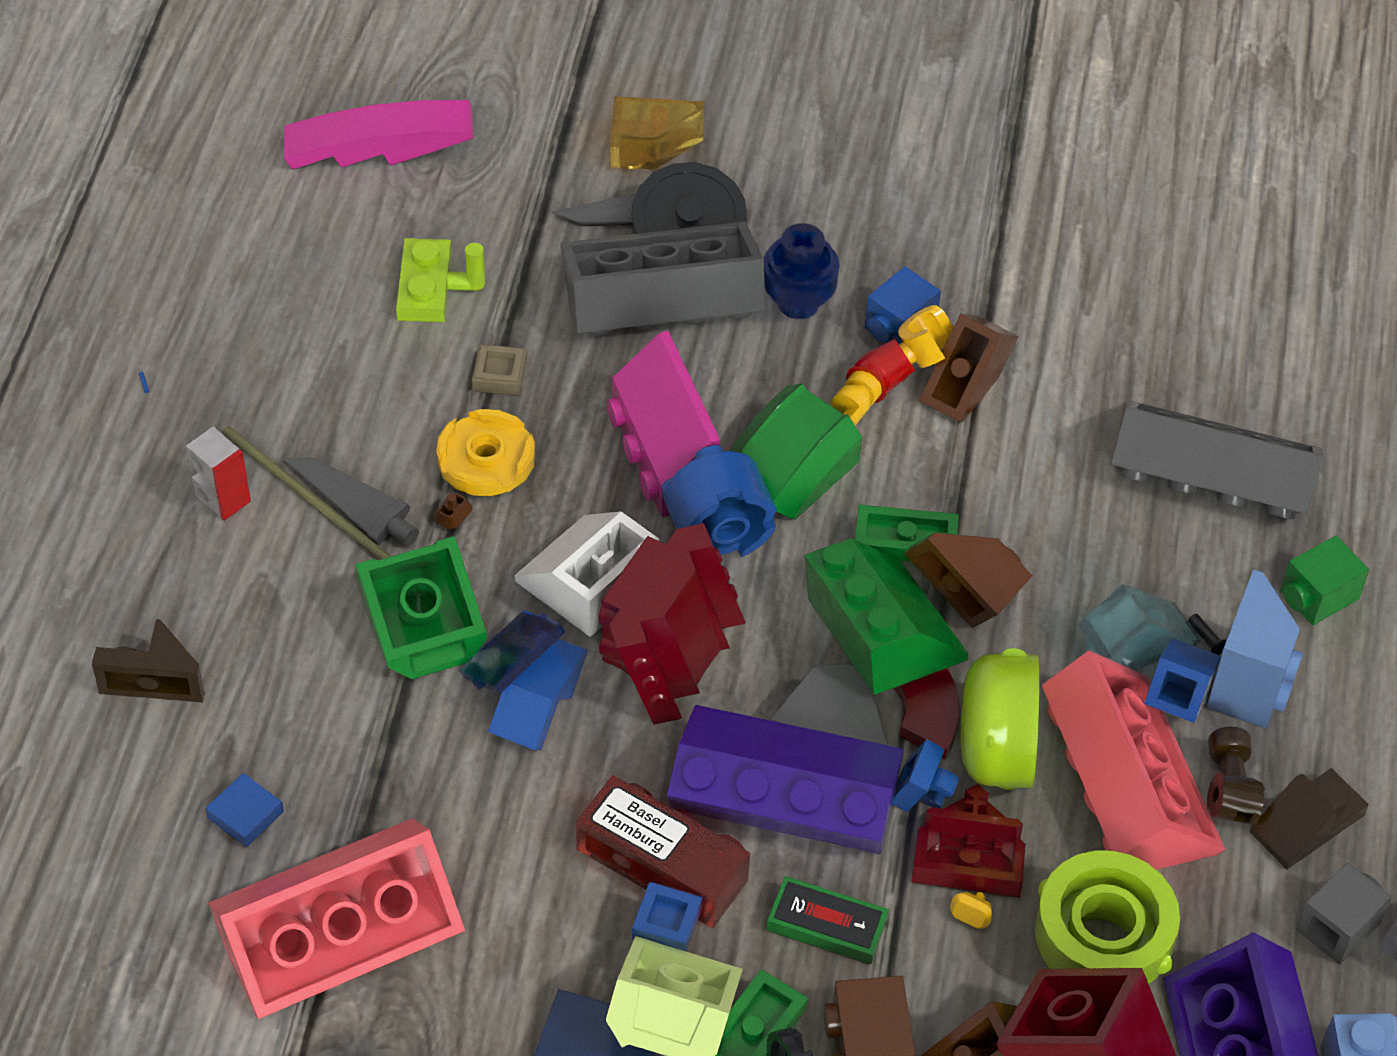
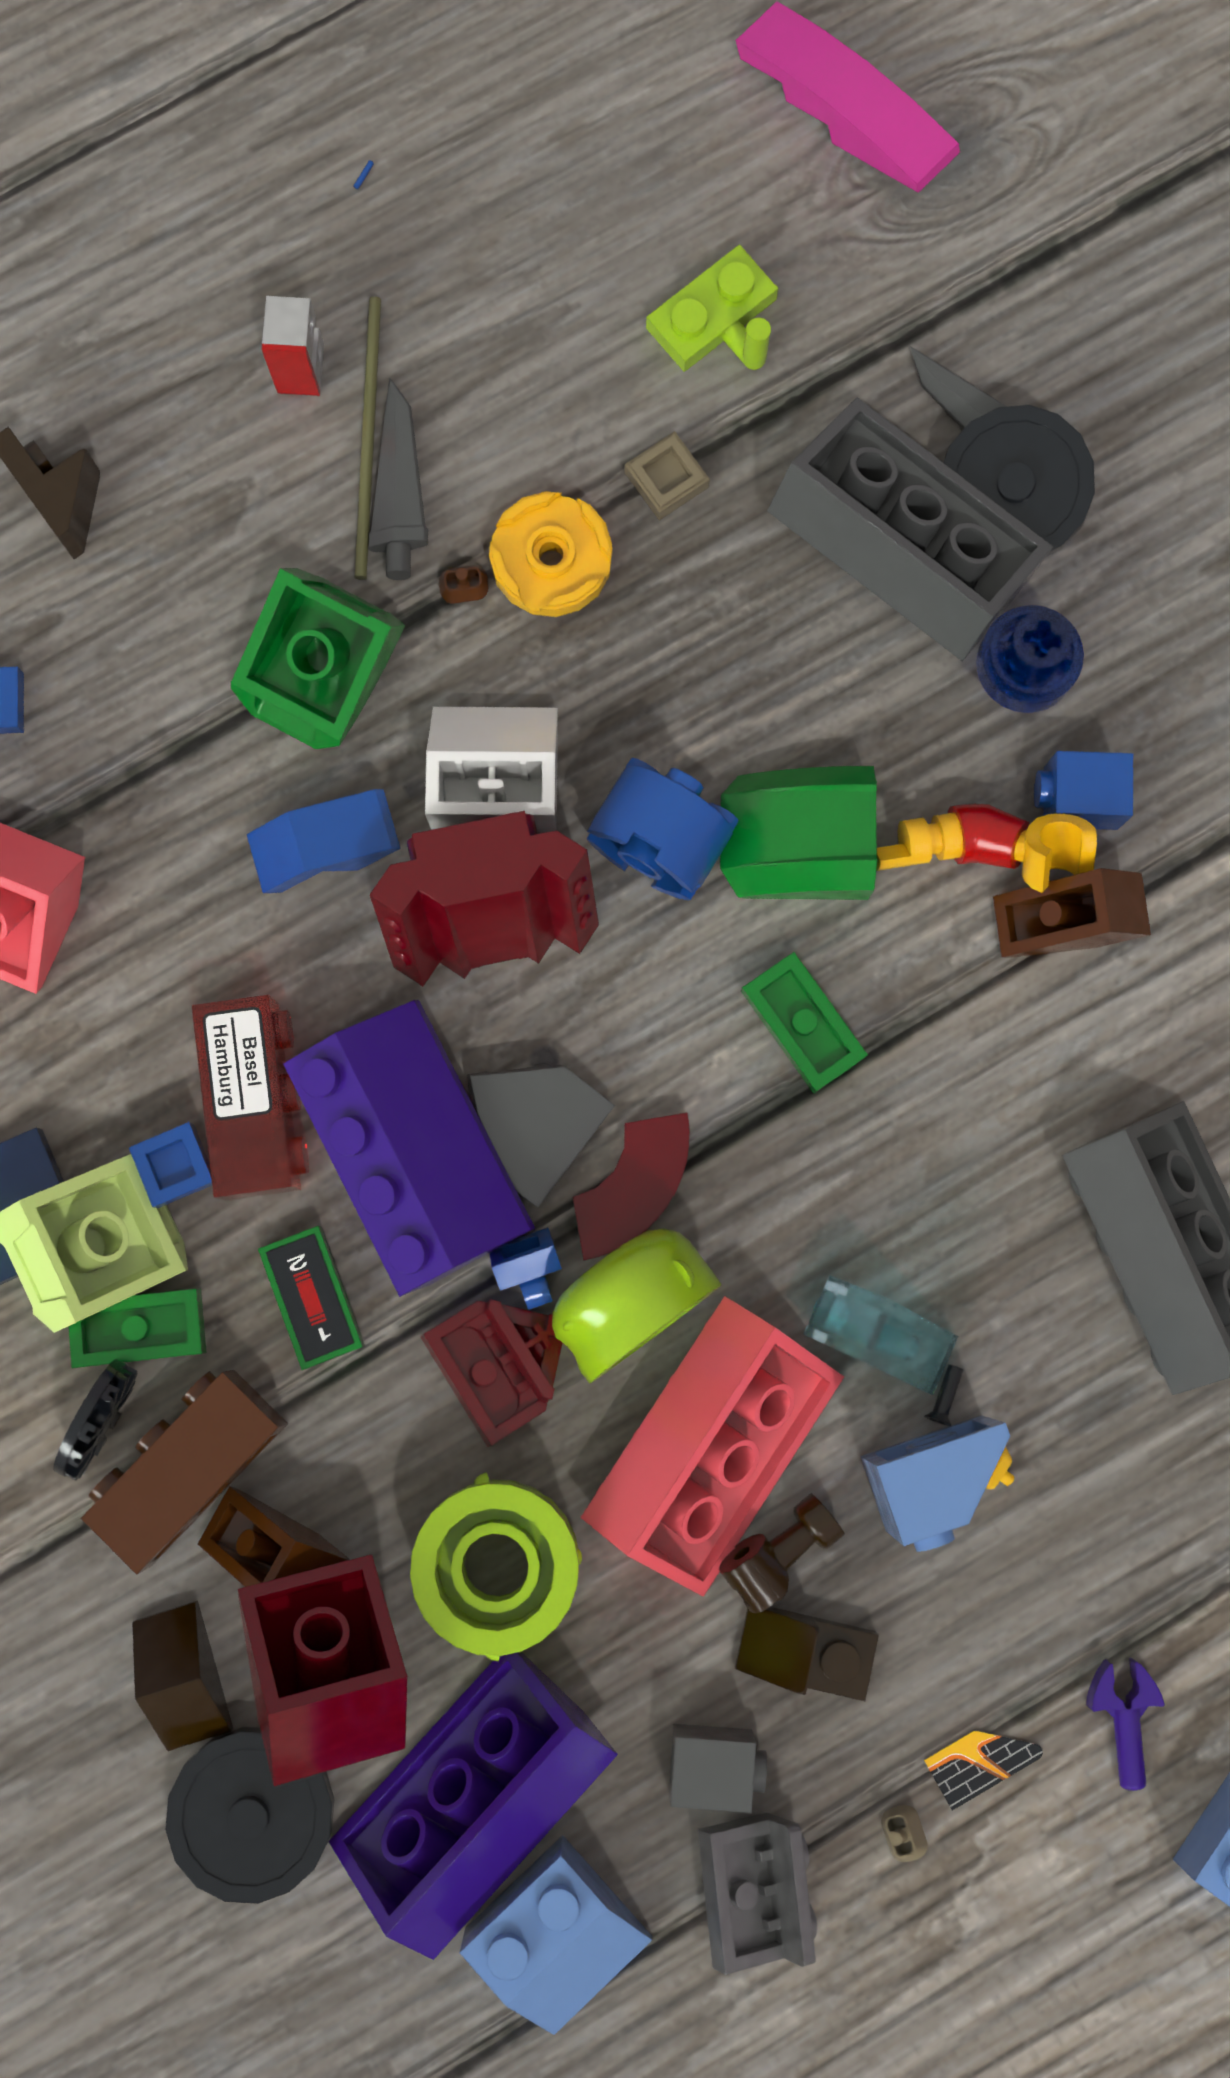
camera: 50 degrees right, 30 degrees up
(511, 651) = (332, 785): clear blue piece -> none
(653, 131) = (1098, 350): clear yellow slope -> none
(659, 415) = (716, 690): dark pink slope -> none
(879, 615) = (676, 1084): green slope -> none
(970, 572) = (799, 1132): reddish brown slope -> none
(972, 909) = (434, 1417): yellow rock -> none
(1183, 680) = (849, 1426): blue brick -> none
(1324, 580) = (1104, 1468): green brick -> none

